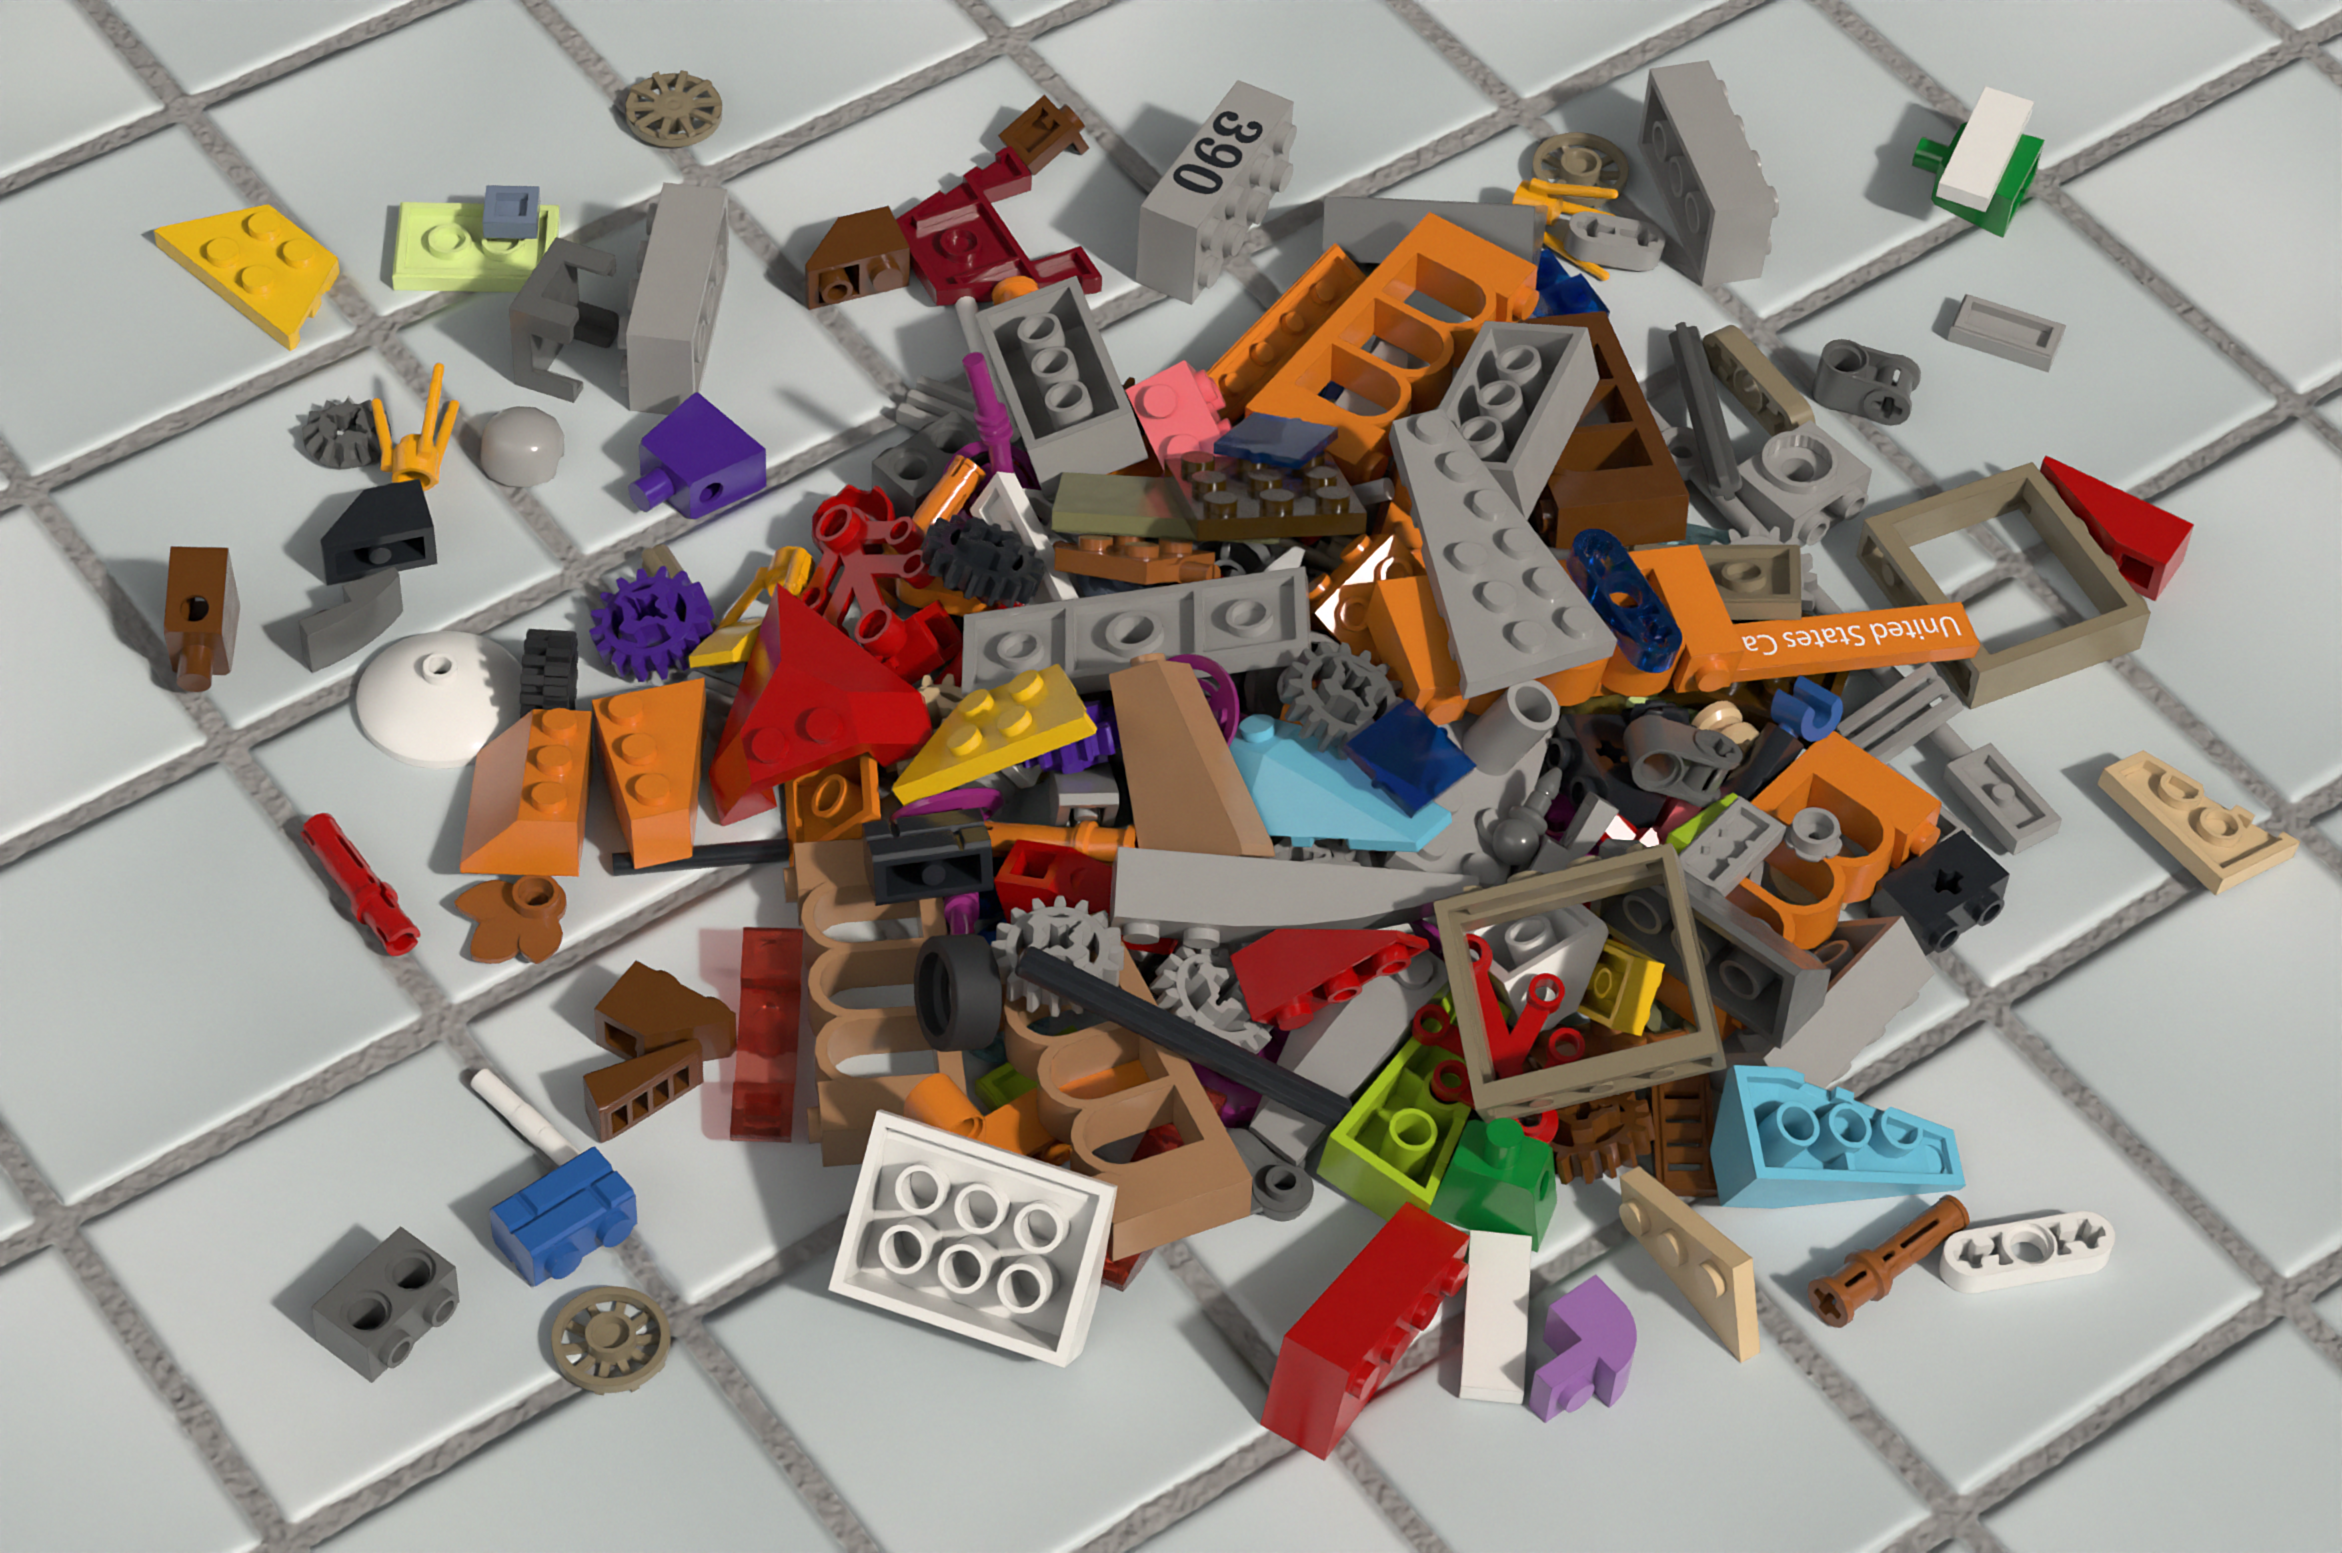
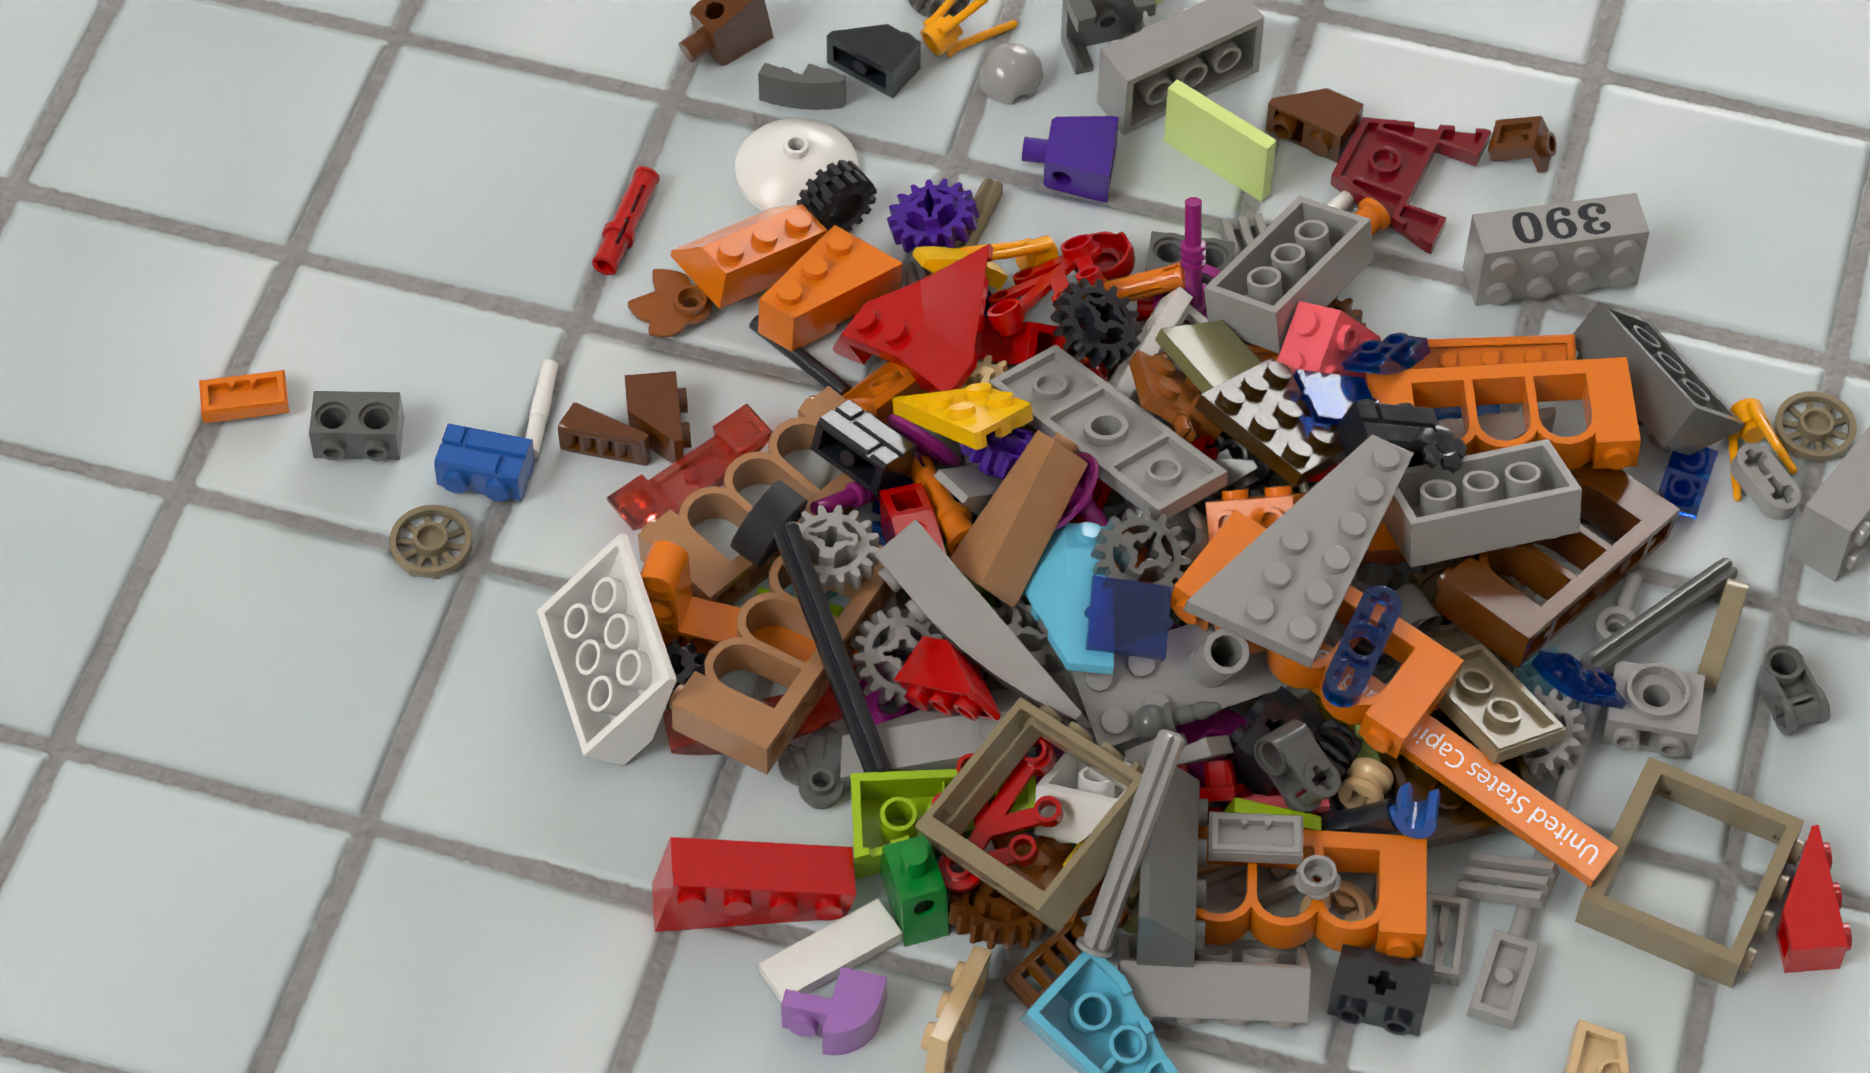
camera: 55 degrees right, 5 degrees up
(224, 1390) = (244, 396): none -> orange plate
(814, 337) = (1219, 140): none -> yellowish green tile
(1243, 377) = (1388, 357): none -> clear blue slope
(1360, 425) = (1387, 421): none -> black brick
(1434, 394) = (1442, 448): none -> black plant
(1711, 921) = (1131, 844): none -> light grey axle
(1755, 504) = (1571, 679): none -> clear blue slope

